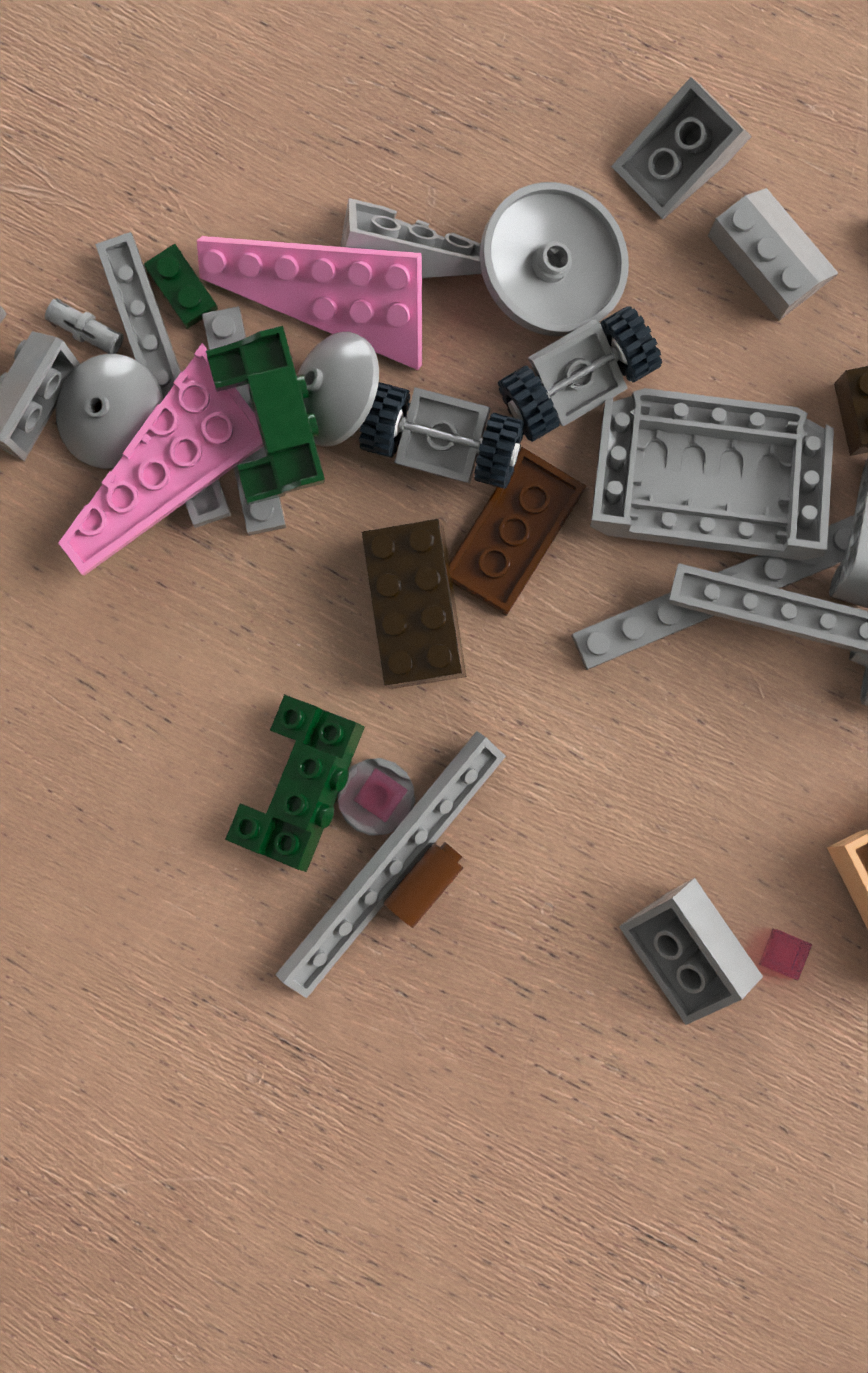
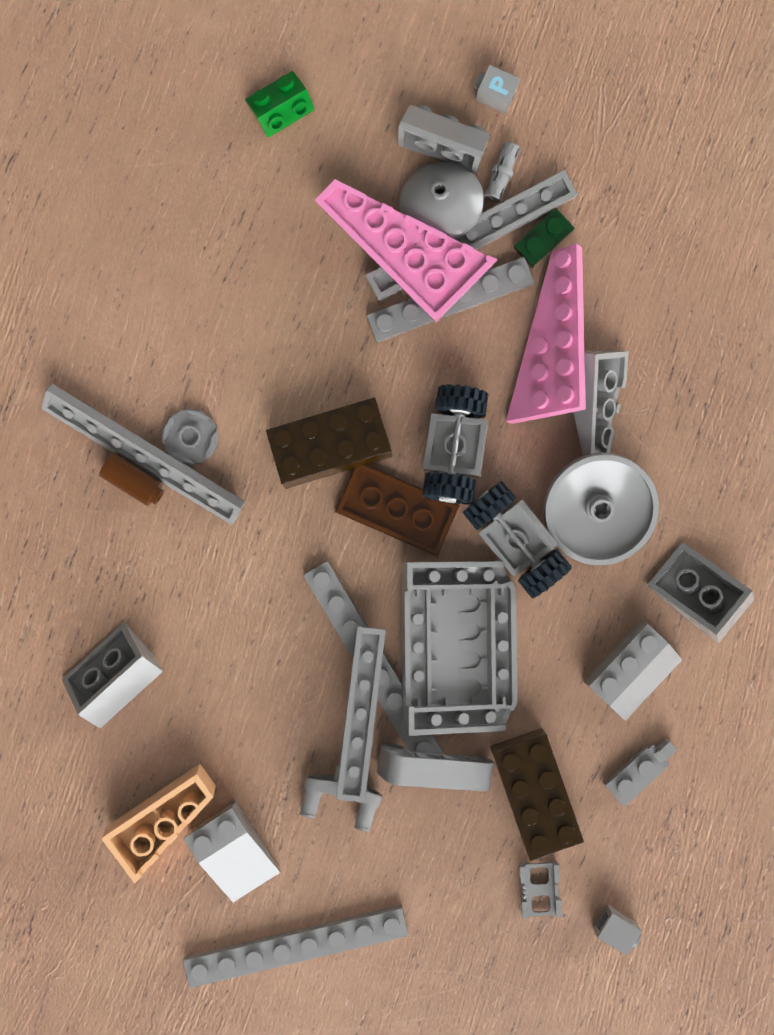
camera: 80 degrees right, 5 degrees up
(277, 399) = (451, 323): dark green bracket -> none
(306, 788) = (188, 386): dark green bracket -> none
(340, 385) = (478, 362): light grey dish -> none
(380, 795) = (189, 439): clear pink tile -> none
(785, 954) = (120, 743): clear pink tile -> none

